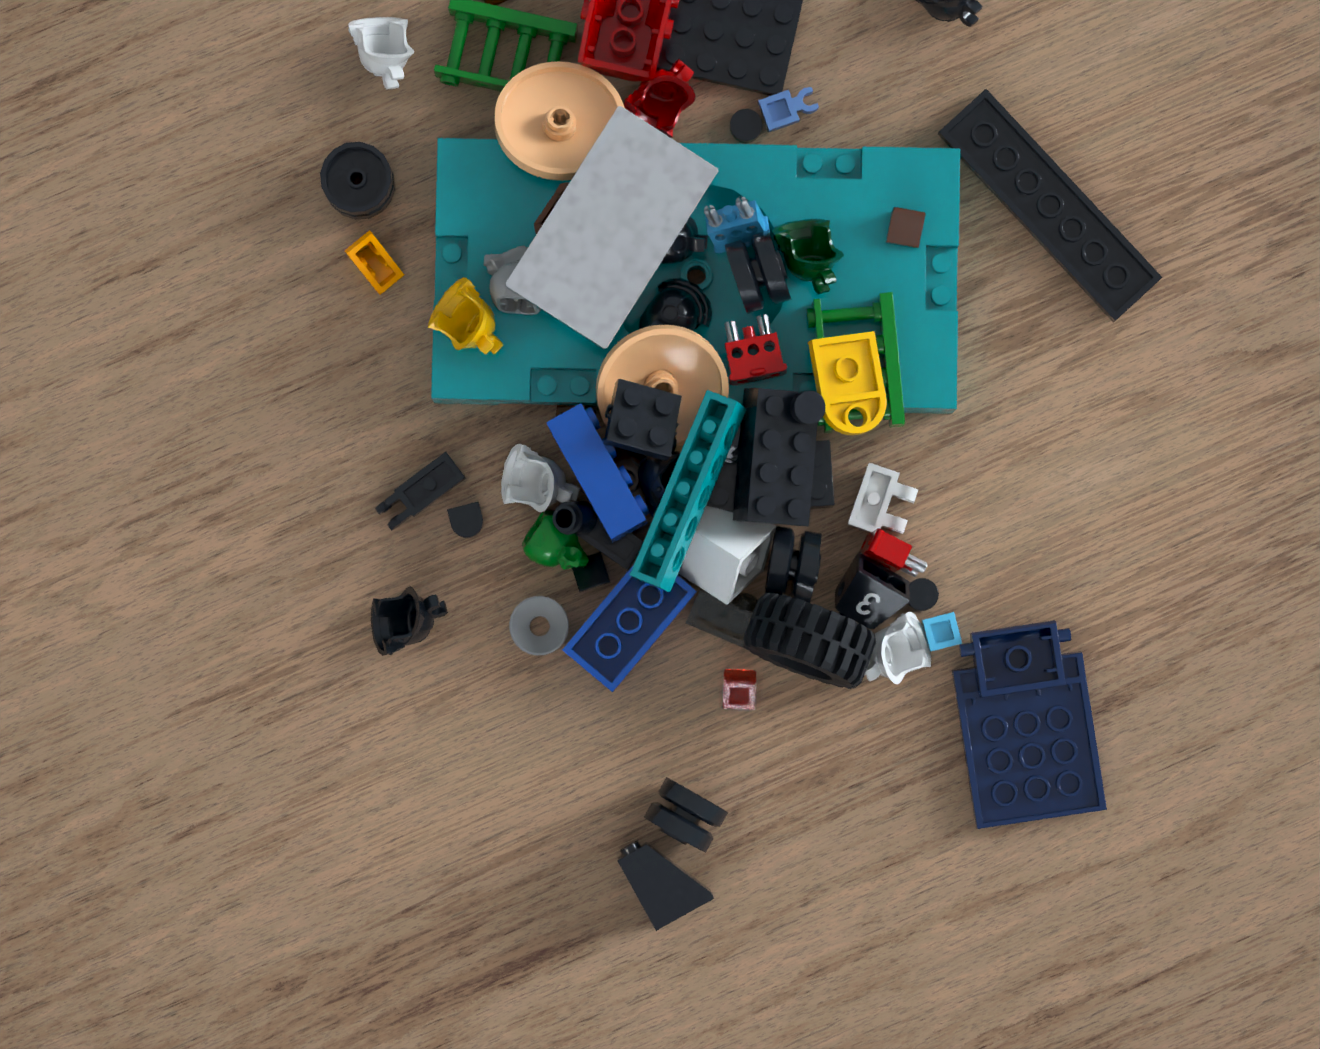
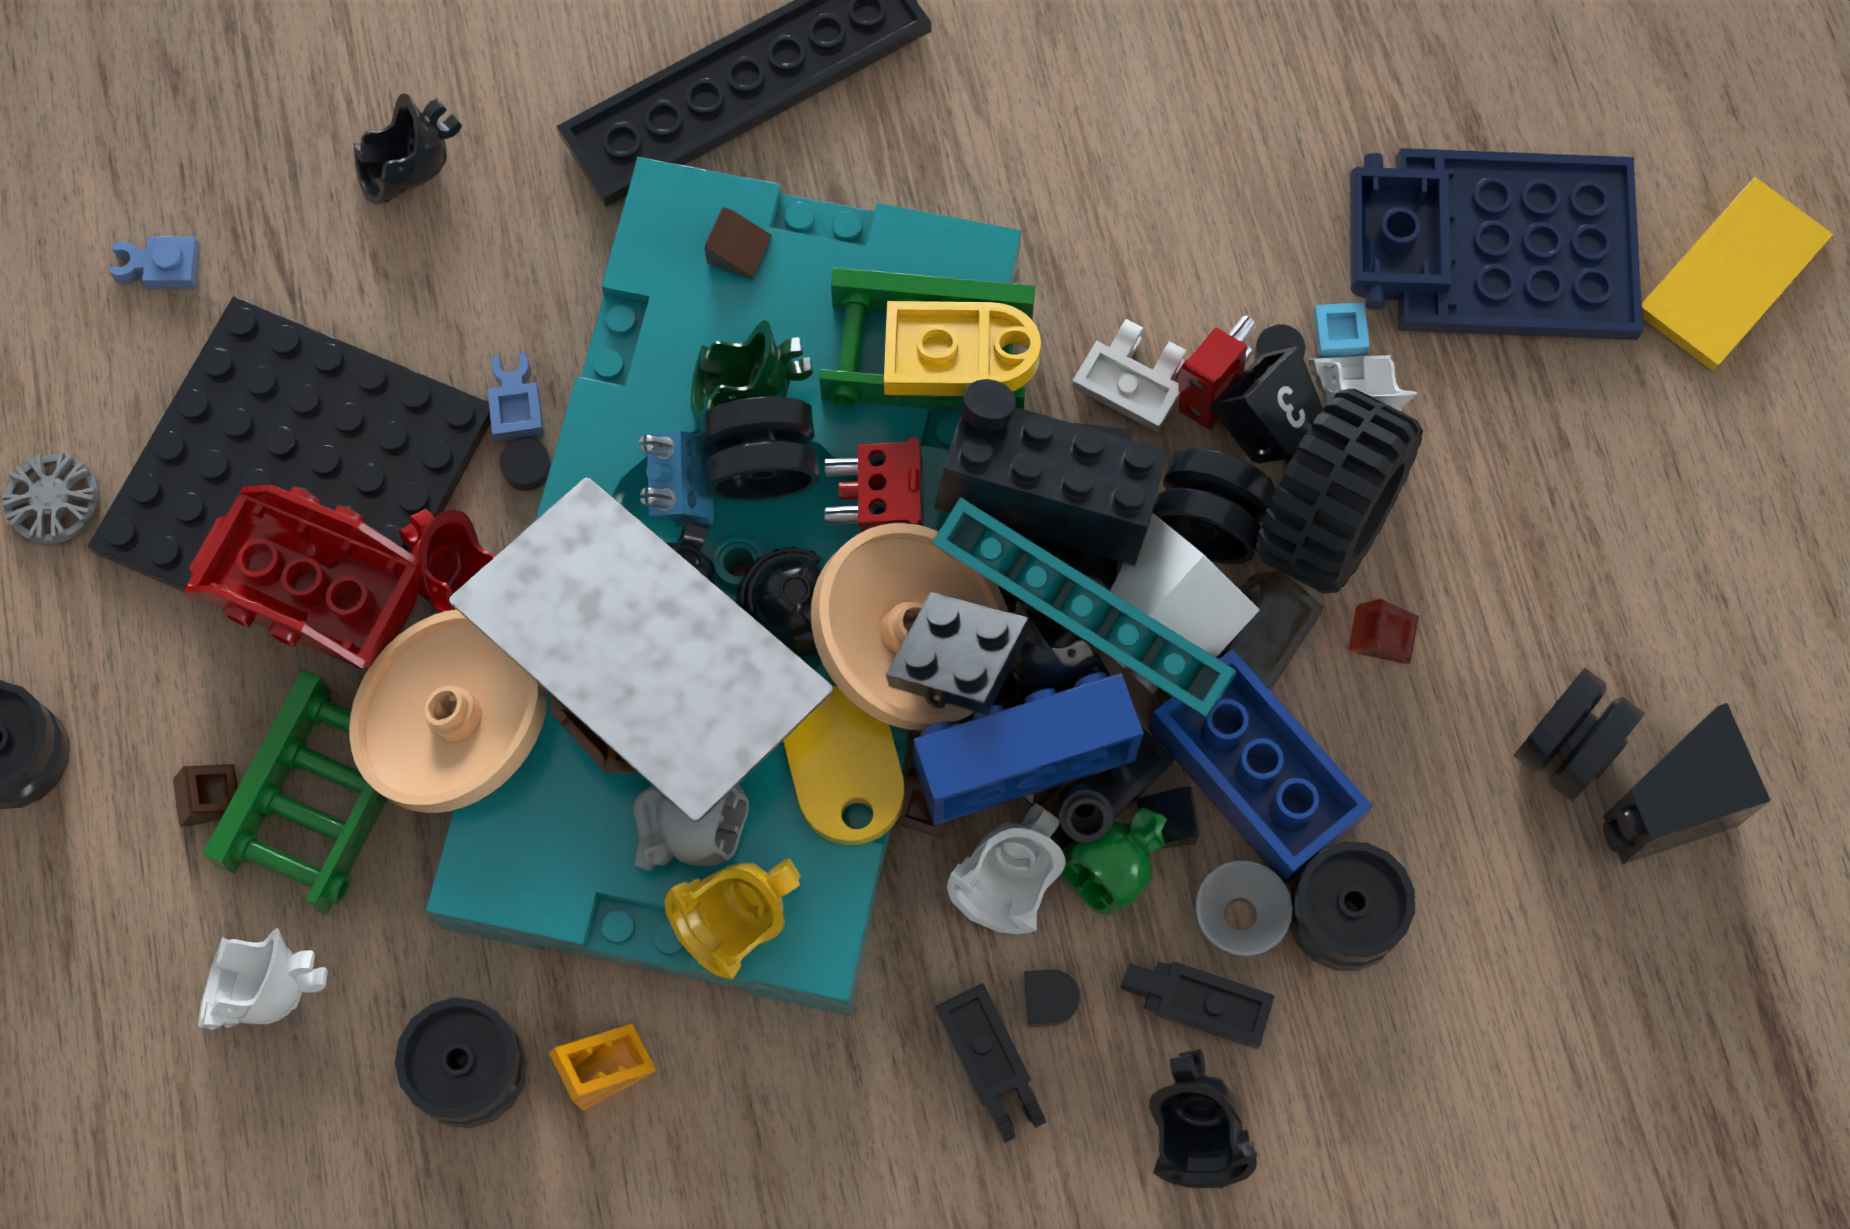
camera: 75 degrees left, 15 degrees down
(480, 611) = (1202, 1001): none -> black hinge
(551, 709) = (1369, 881): none -> black wheel
(572, 365) = (844, 760): none -> yellow tile
(1037, 888) = (1734, 274): none -> yellow tile

